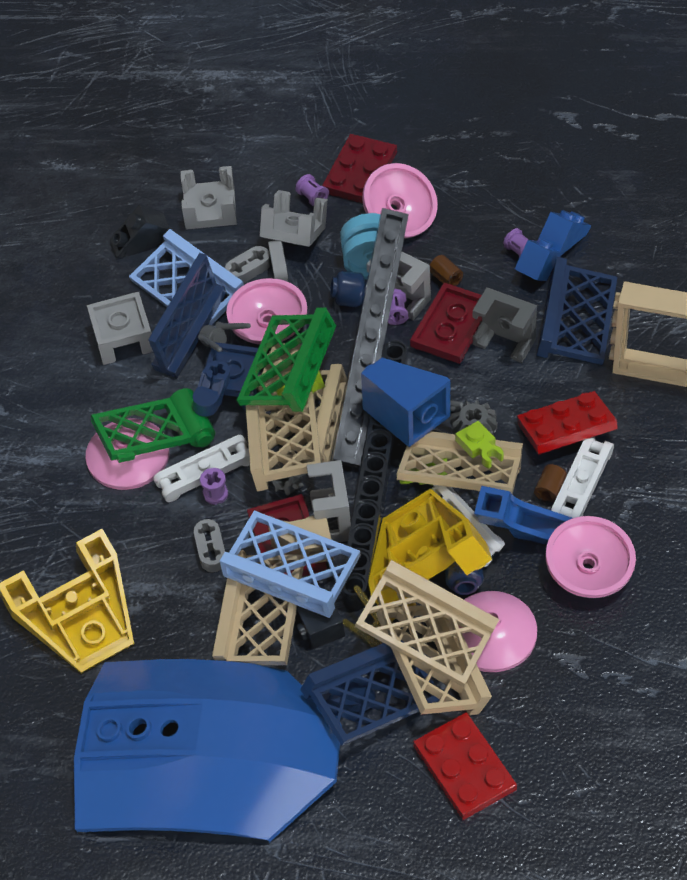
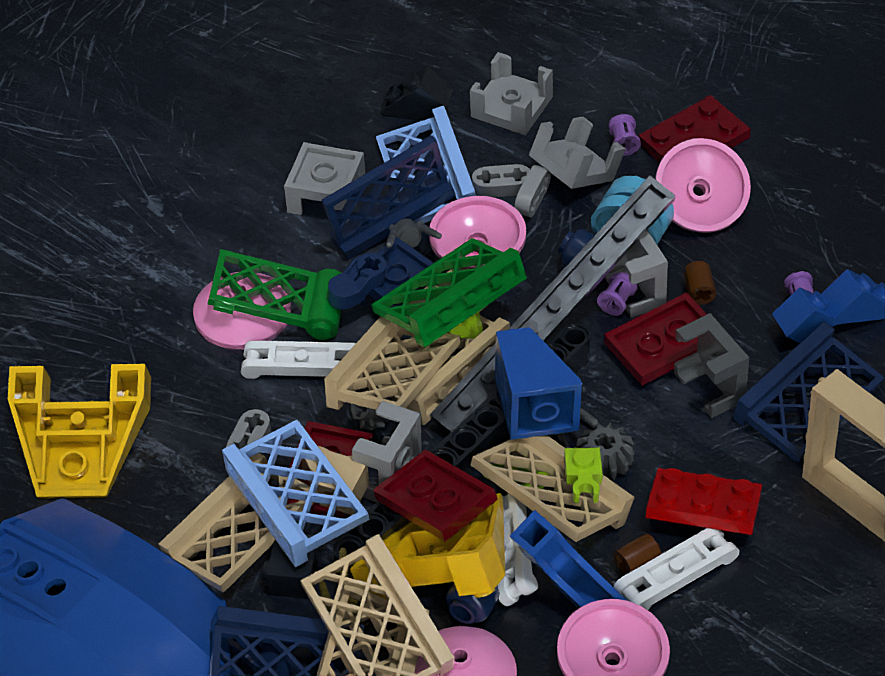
camera: 30 degrees right, 5 degrees down
(216, 486) = (294, 379): medium lavender bush -> none
(394, 513) = (435, 495): none -> dark red plate

